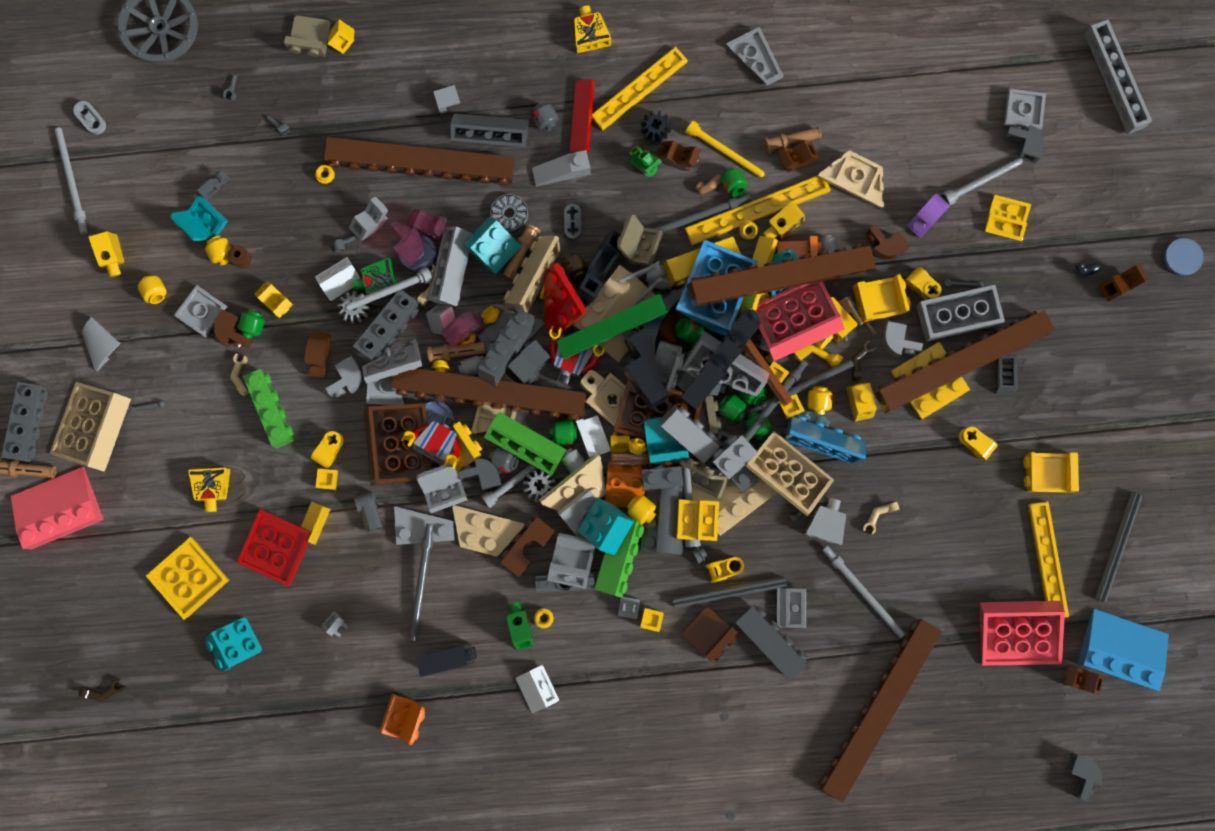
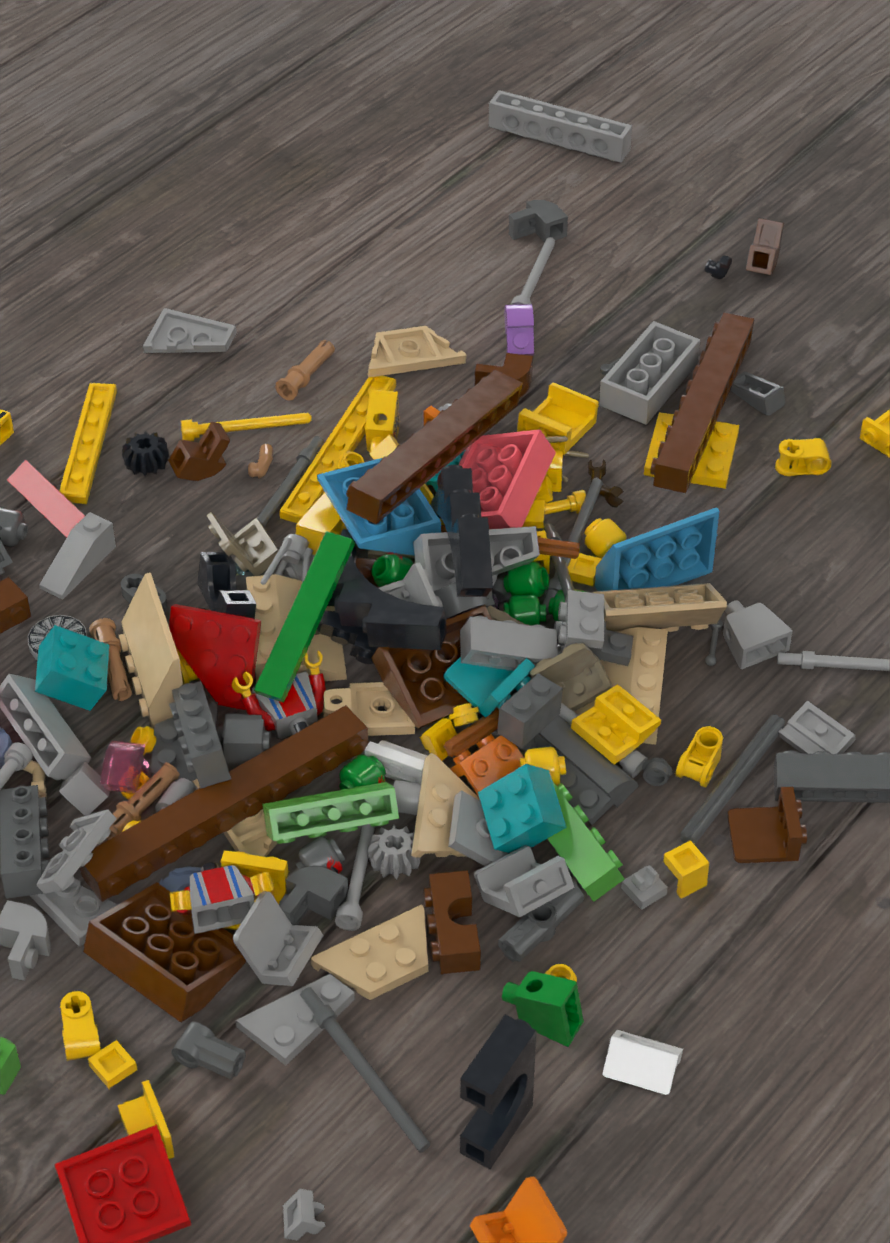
camera: 45 degrees left, 35 degrees down
(644, 161) = (171, 485): green hips -> none
(733, 181) = (286, 437): green head -> none
(798, 156) = (329, 373): reddish brown brick -> none
(861, 401) = (647, 503): yellow torso -> none
(880, 510) = (795, 574): tan arm -> none
(894, 340) = (617, 441): light grey brick -> none
(922, 283) = (584, 378): yellow piece -> none
(1007, 217) = (595, 284): yellow slope -> none
(1024, 108) = (501, 201): light grey plate -> none
(1183, 257) = (789, 204): sand blue tile -> none

